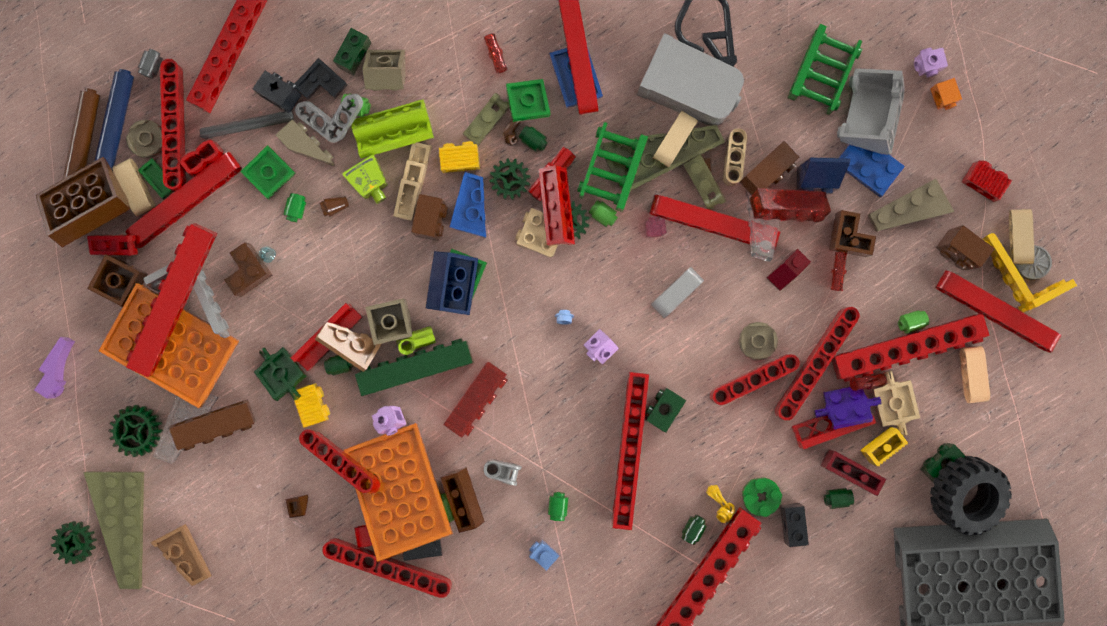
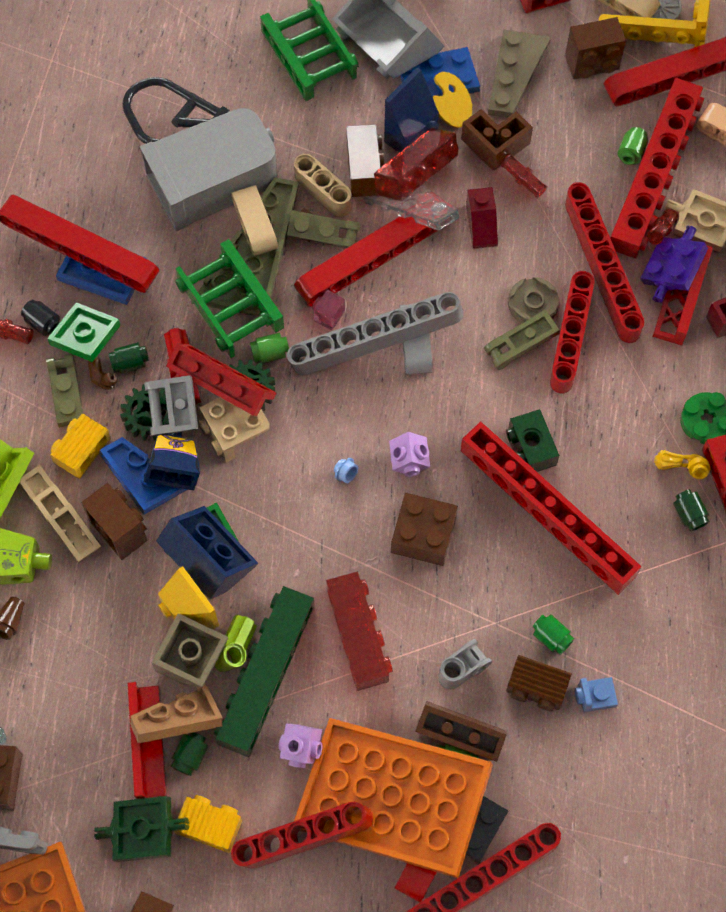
camera: 50 degrees left, 20 degrees down
(415, 295) = (184, 597): none -> yellow slope
(490, 218) = (173, 462): none -> dark blue torso
(517, 67) = (40, 317): none -> black brick
(522, 196) = (180, 405): none -> light grey plate
(523, 519) = (538, 683): none -> reddish brown brick
(562, 390) = (424, 529): none -> reddish brown brick
(652, 262) = (388, 335): none -> light grey beam
(726, 354) = (522, 339): none -> olive plate
(853, 192) = (452, 106): none -> yellow piece

